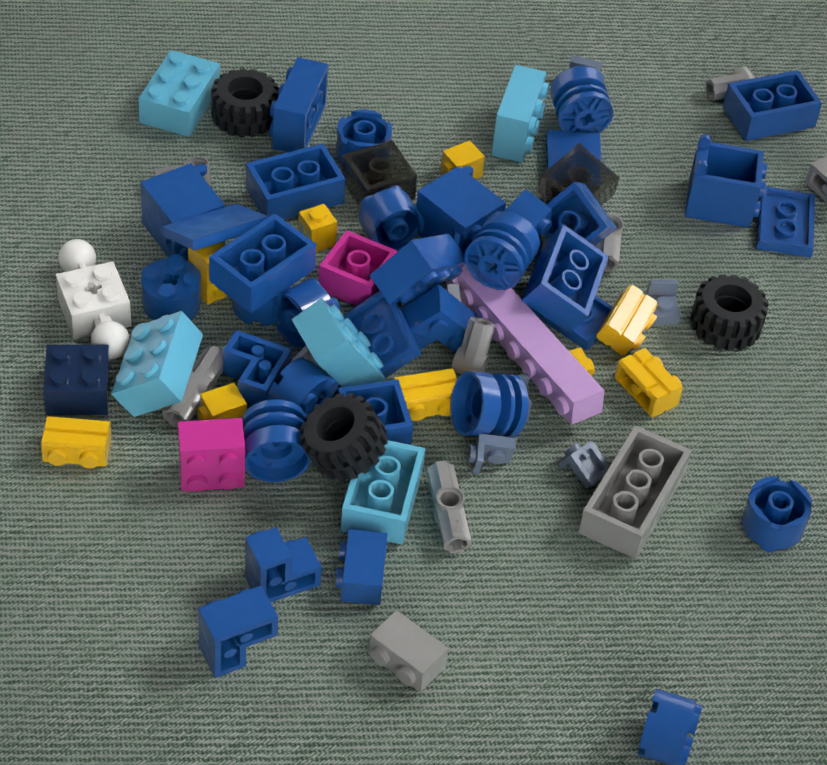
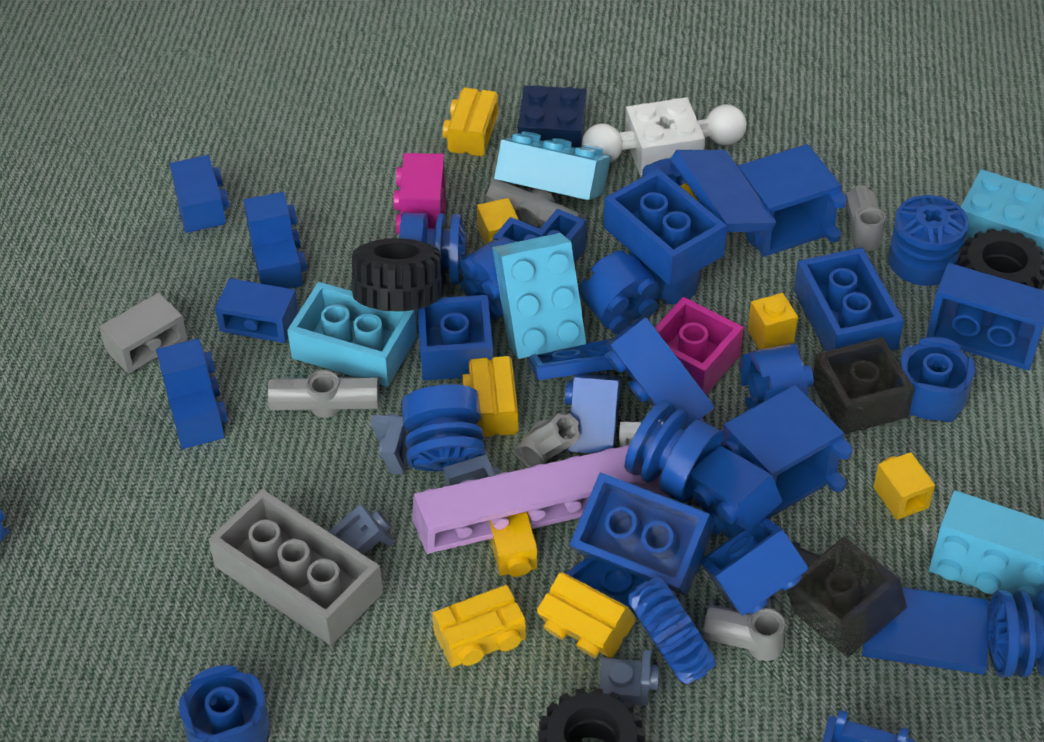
camera: 105 degrees right, 0 degrees up
(217, 134) = (926, 238): none -> blue wheel
(478, 595) = (192, 393): none -> blue brick
(637, 265) = (671, 630): none -> blue gear

